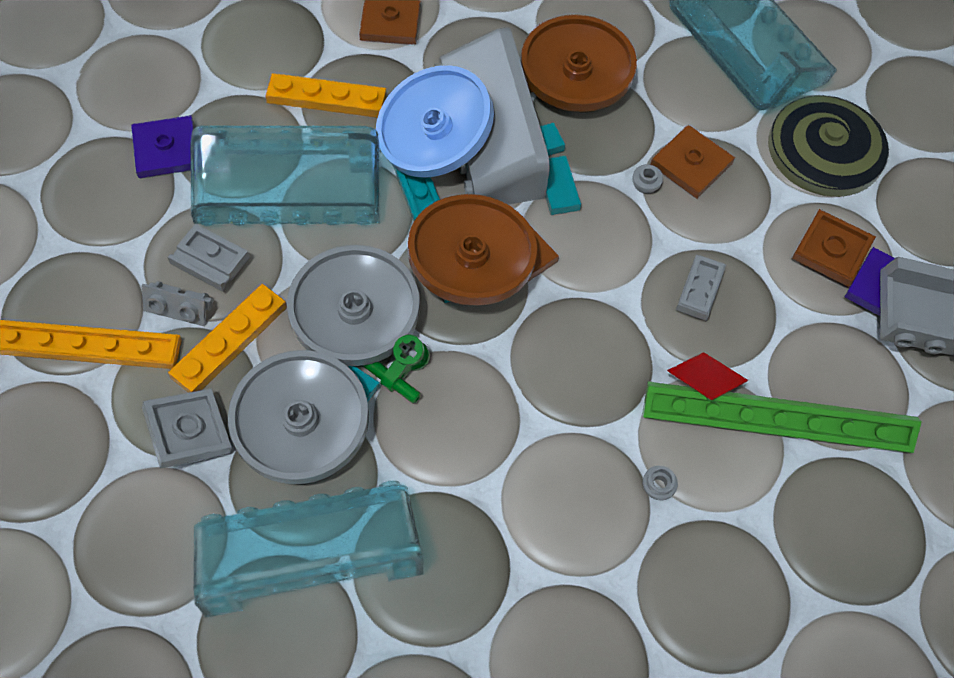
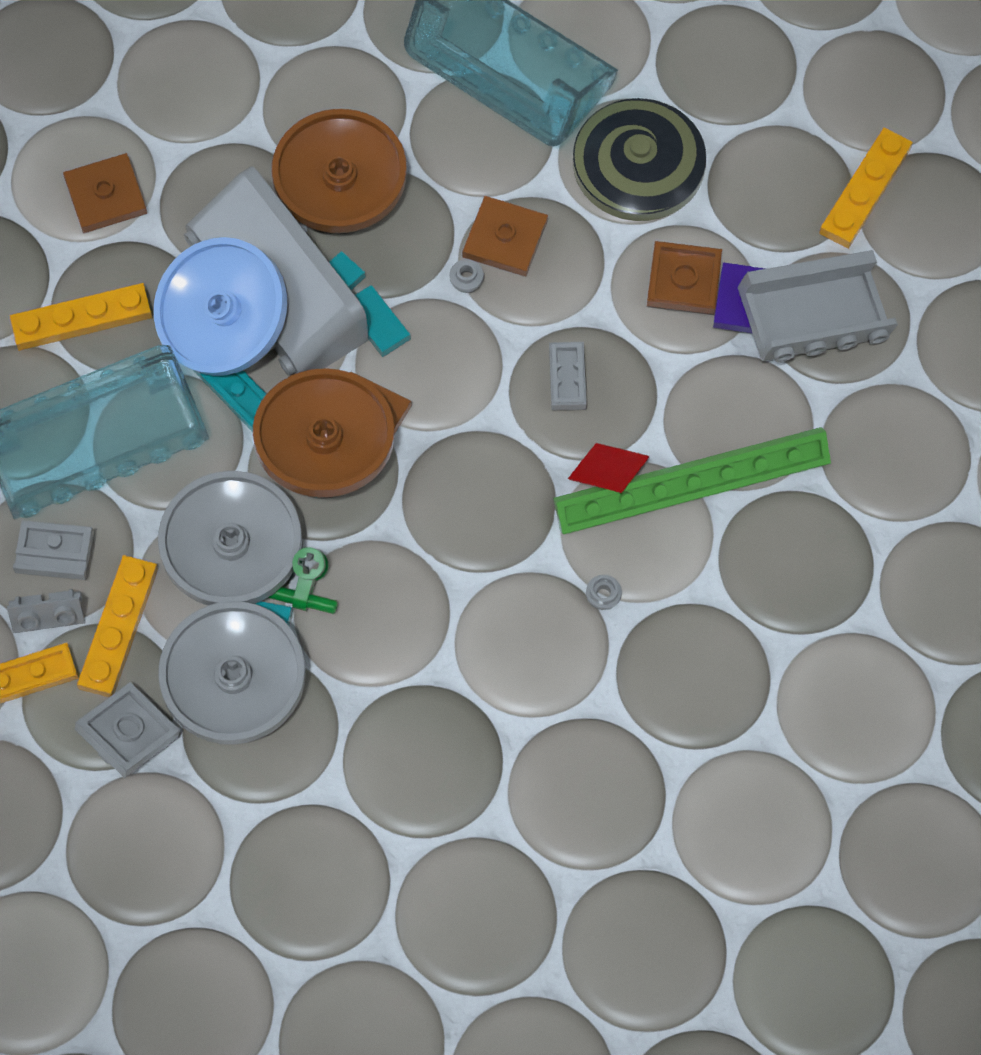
camera: 20 degrees left, 5 degrees up
(304, 546) = (299, 789): clear light blue windscreen -> none

